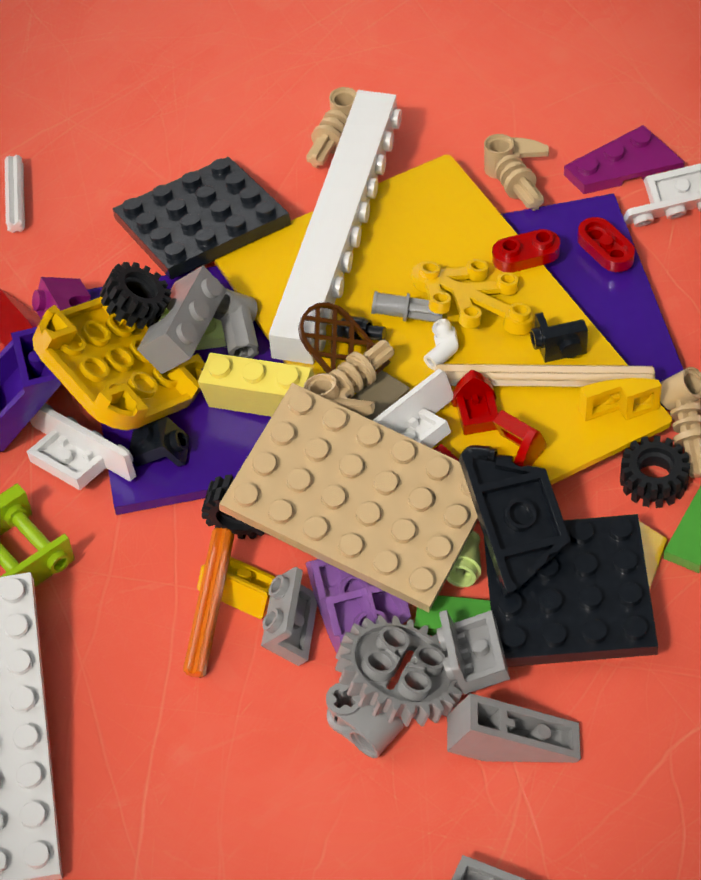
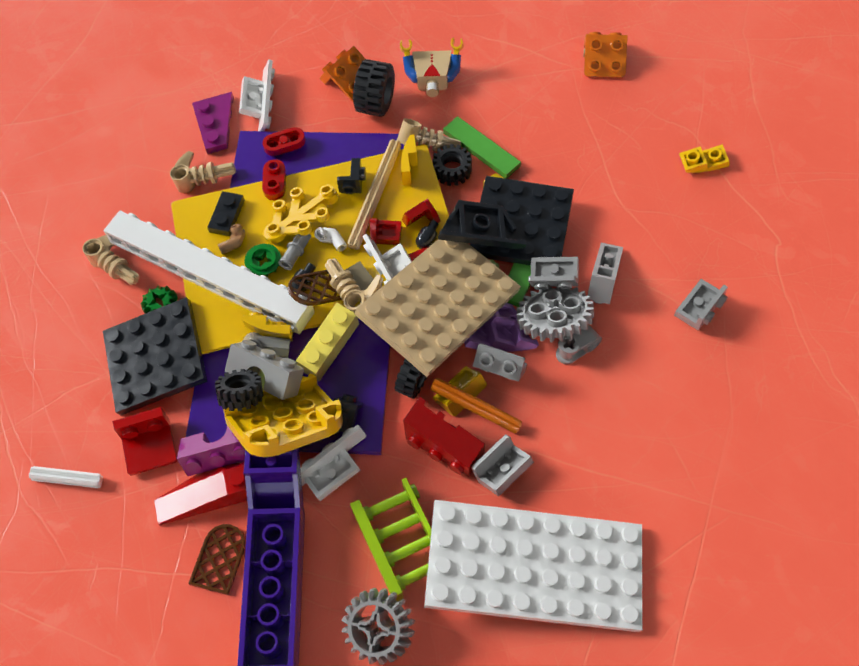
camera: 75 degrees left, 10 degrees up
(77, 252) = (146, 440): none -> red bracket
(120, 659) = (501, 465): none -> light grey bracket
(144, 569) = (441, 439): none -> red wedge
(262, 310) = (260, 324): none -> yellow slope
(306, 196) = (165, 293): none -> green gear
(365, 270) = (257, 254): none -> green gear
(401, 239) = (235, 239): none -> medium nougat arm
(446, 215) = (226, 213): none -> black plate

